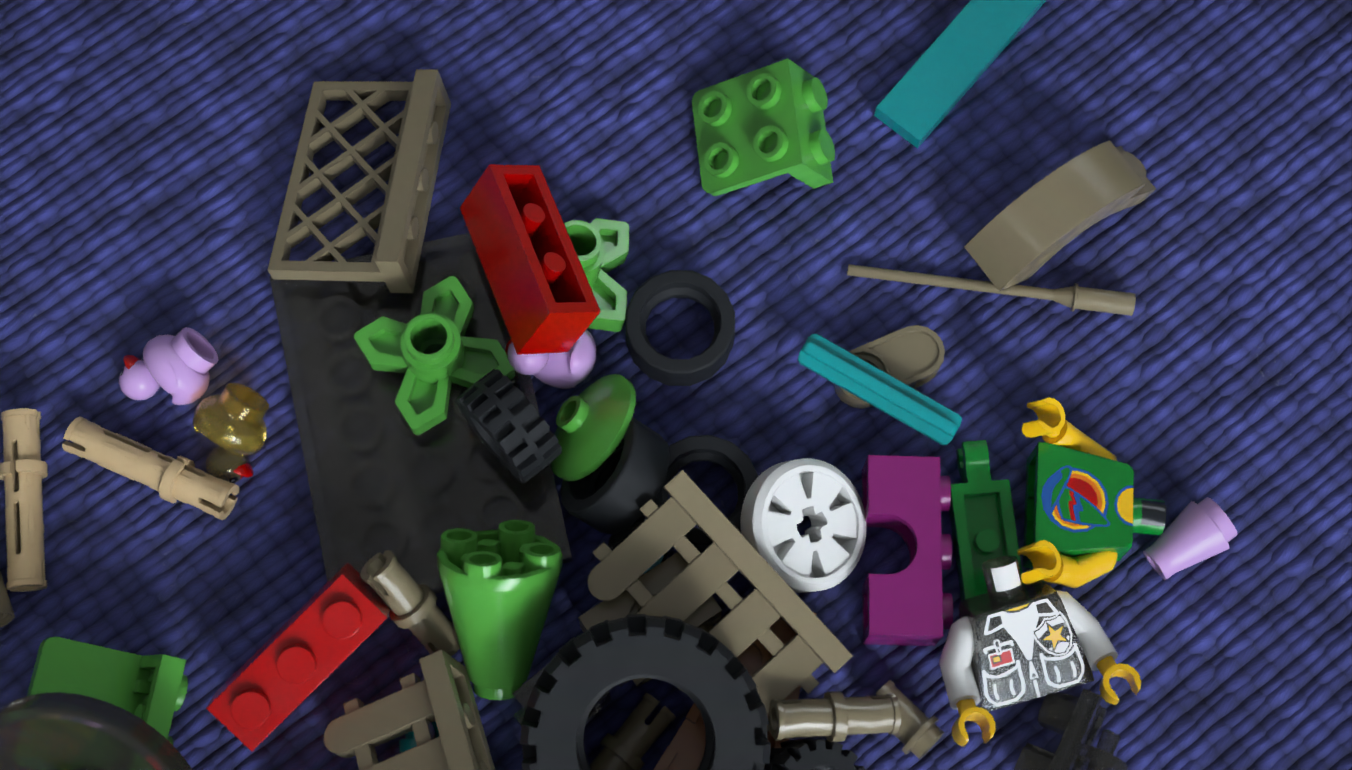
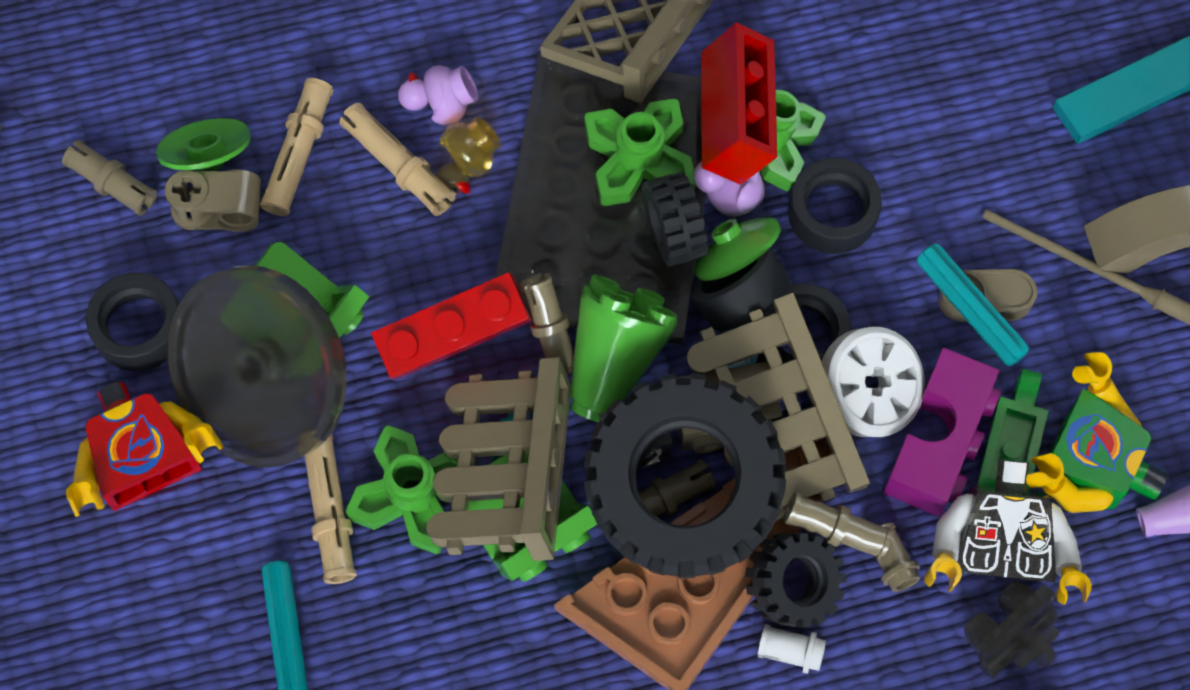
camera: 25 degrees right, 5 degrees down
(763, 129) = (960, 81): bright green bracket -> none

